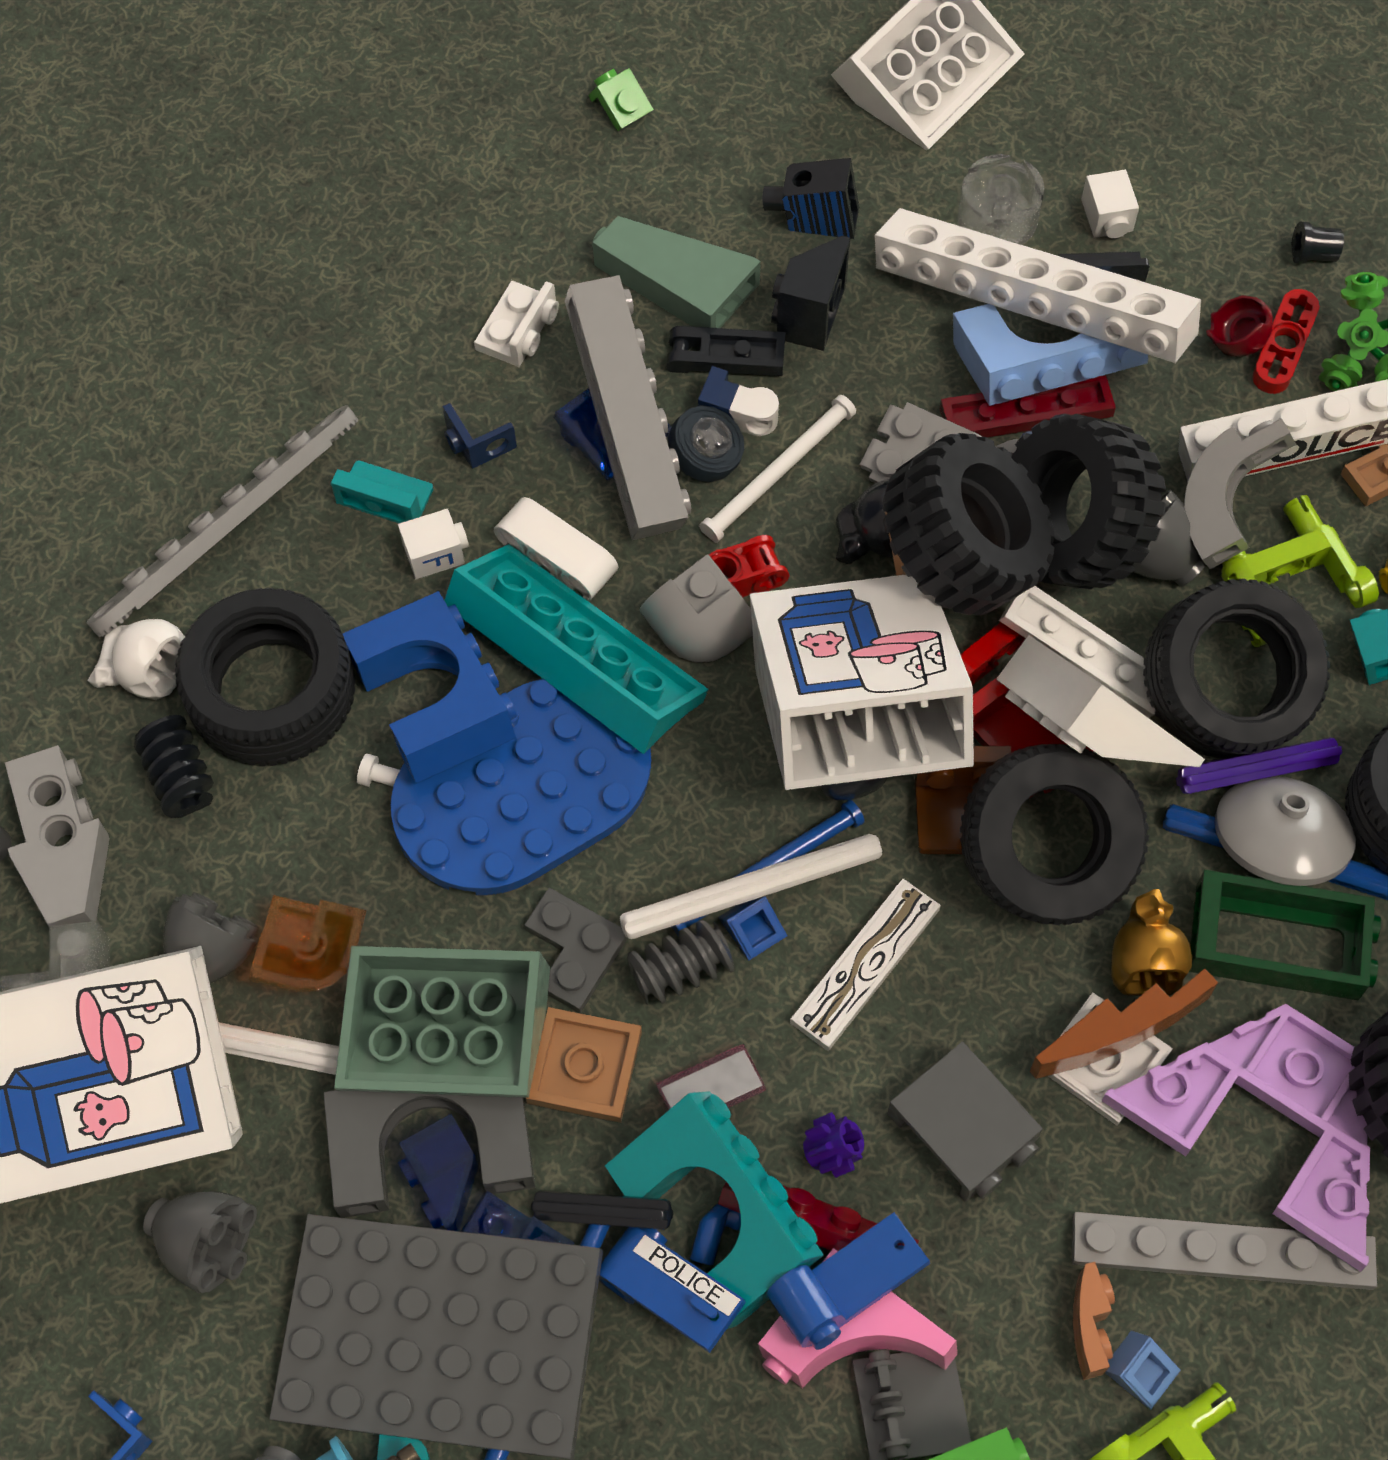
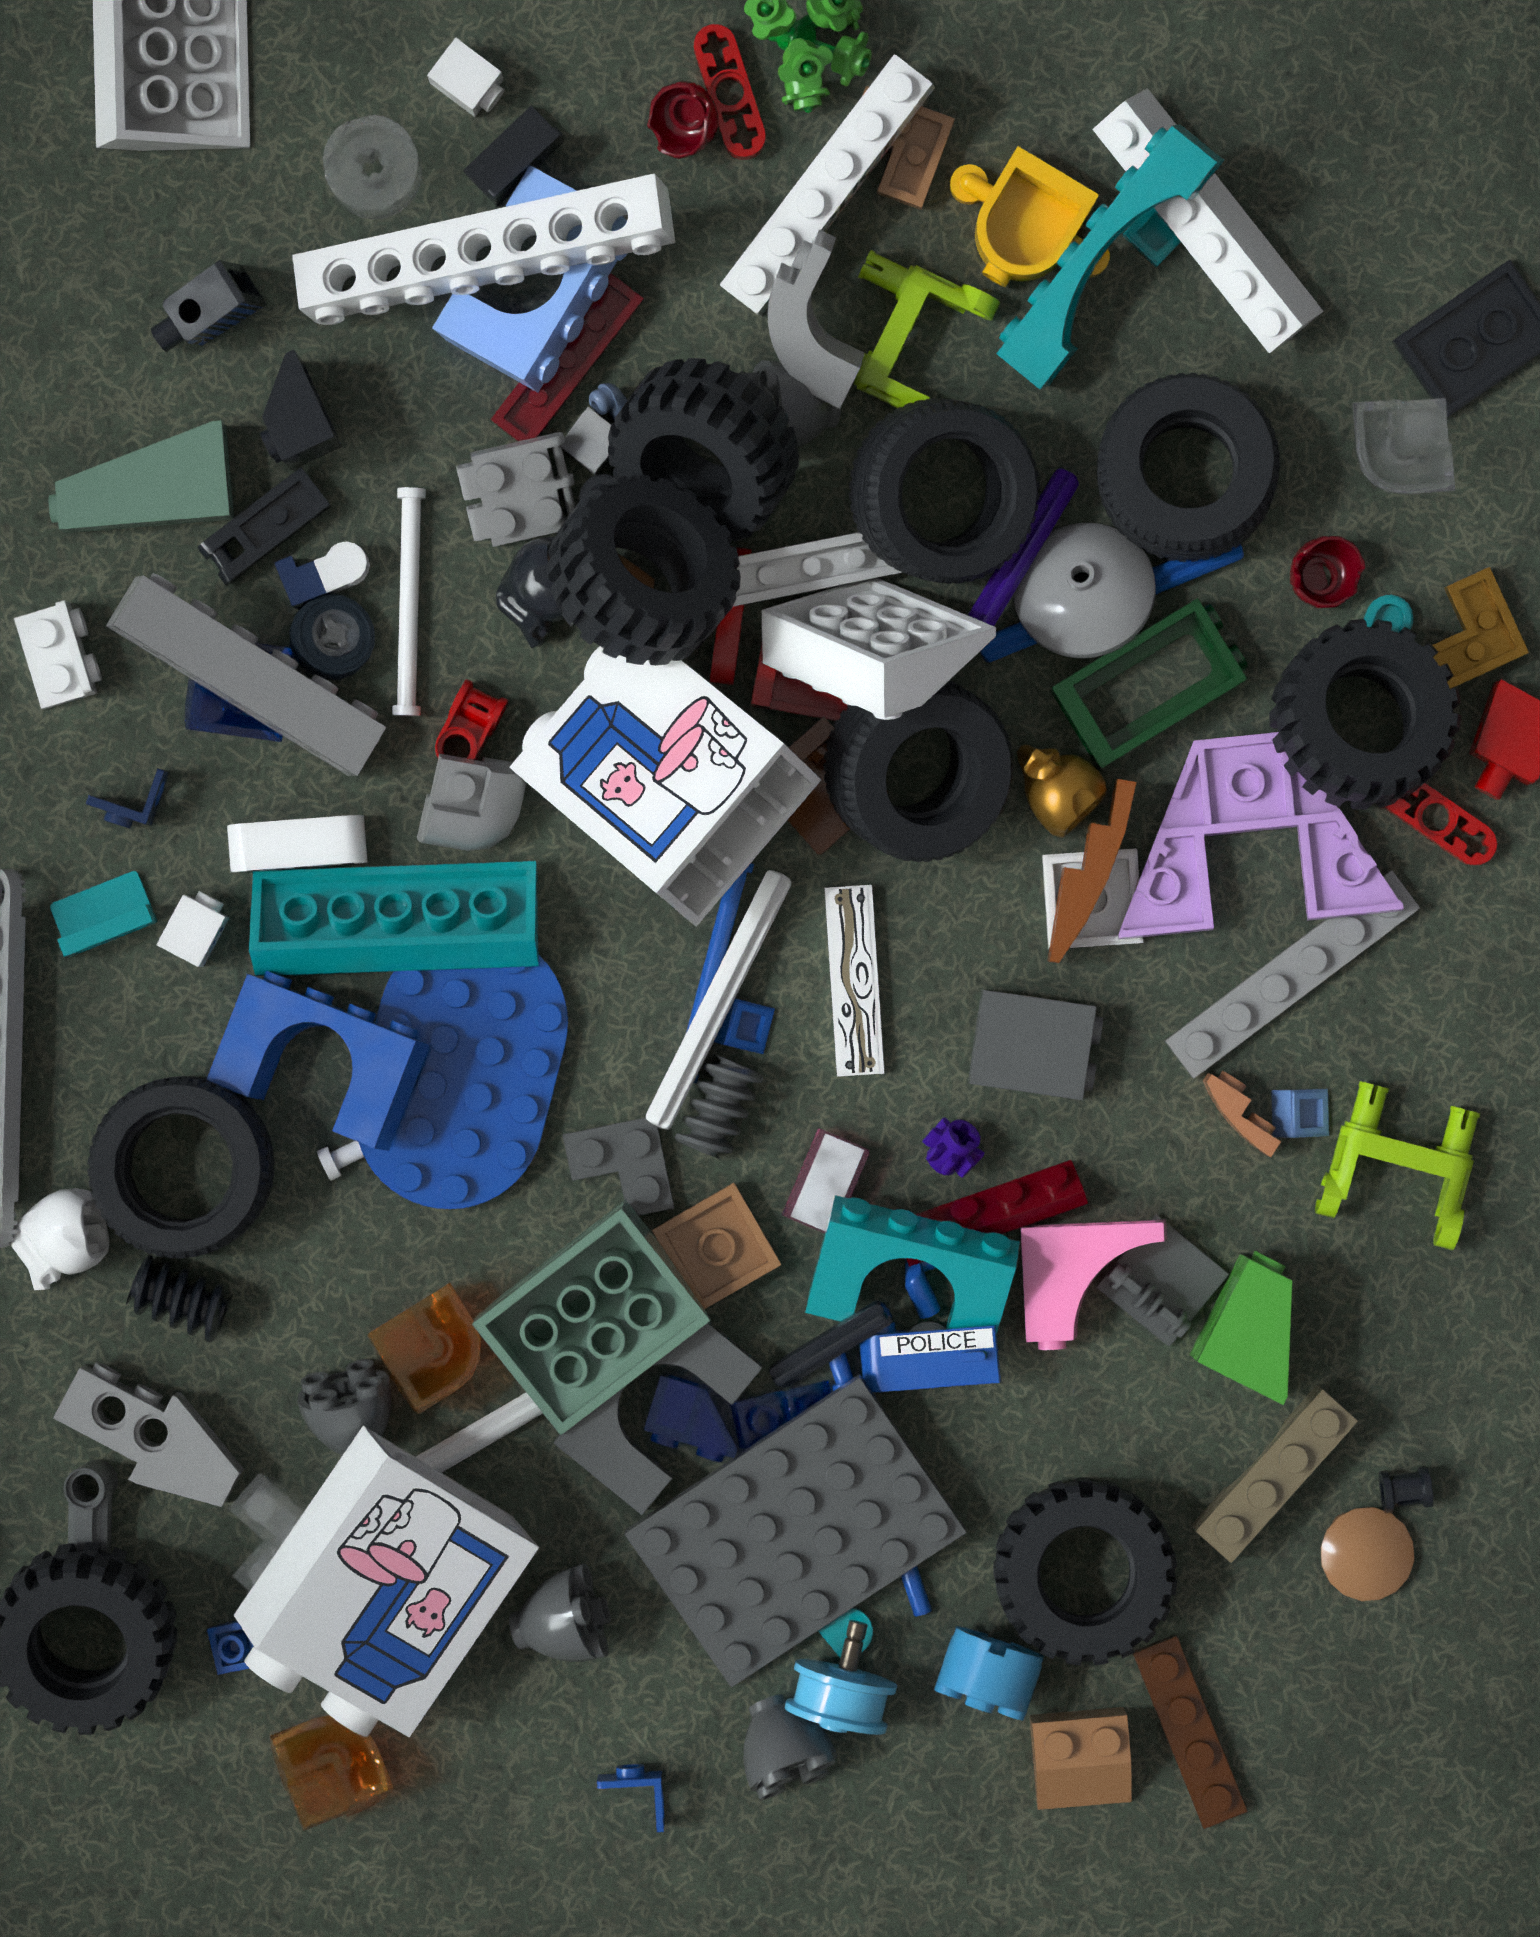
camera: 45 degrees left, 25 degrees up
(847, 1283) = (1054, 1248): blue door -> none

